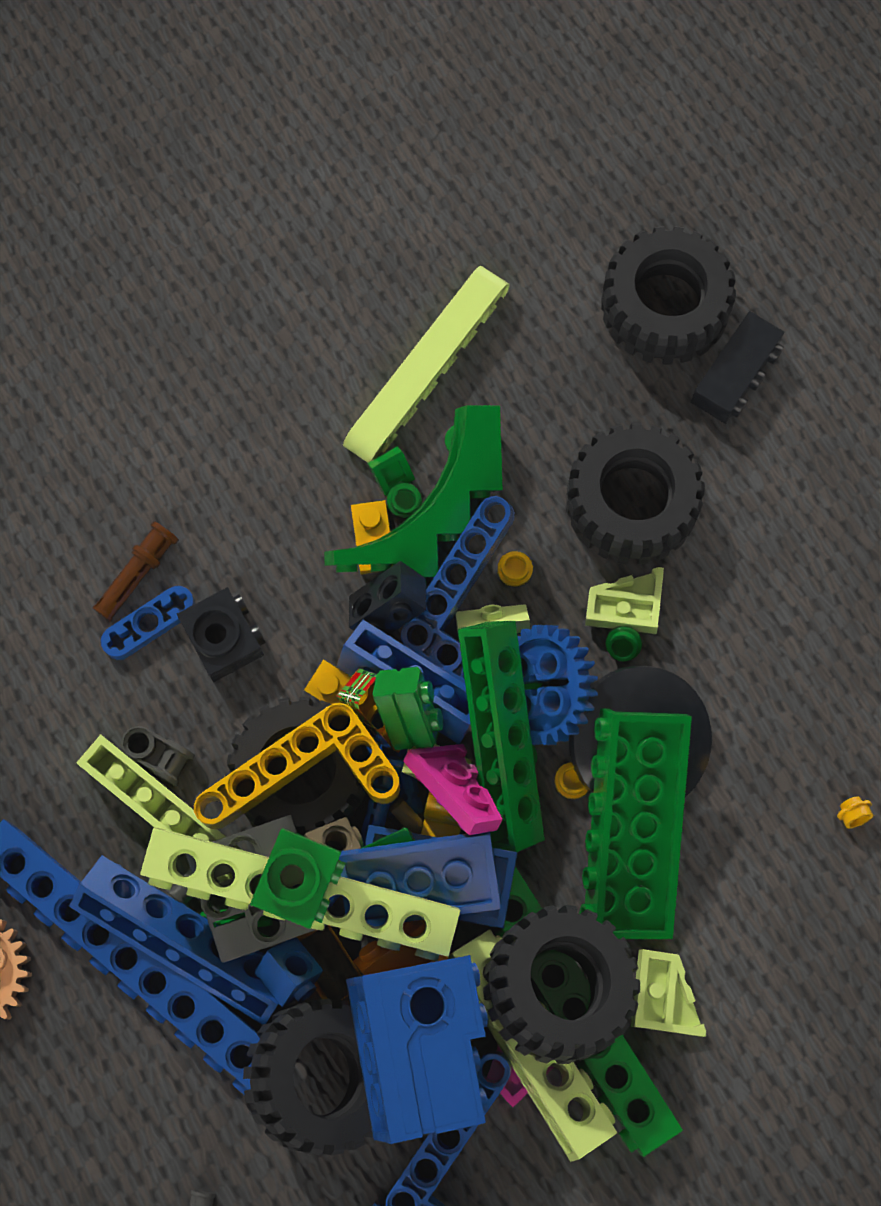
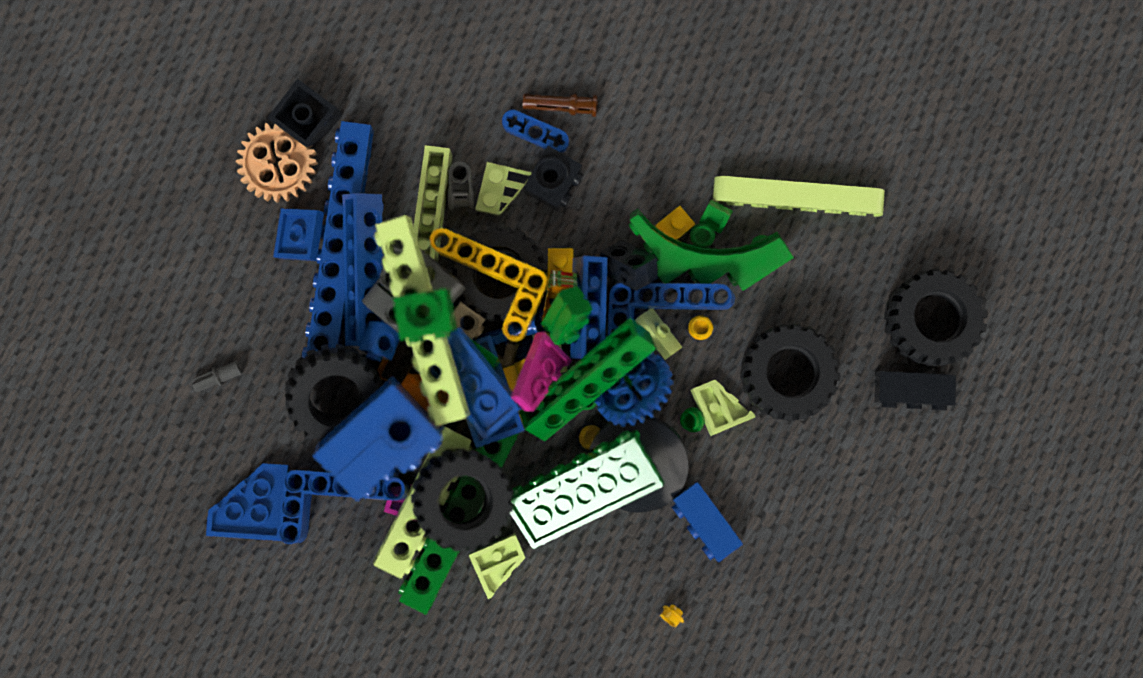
camera: 60 degrees right, 10 degrees up
(81, 1000) = (298, 234): none -> blue plate
(189, 707) = (499, 188): none -> yellowish green wing
(762, 701) = (706, 522): none -> blue brick

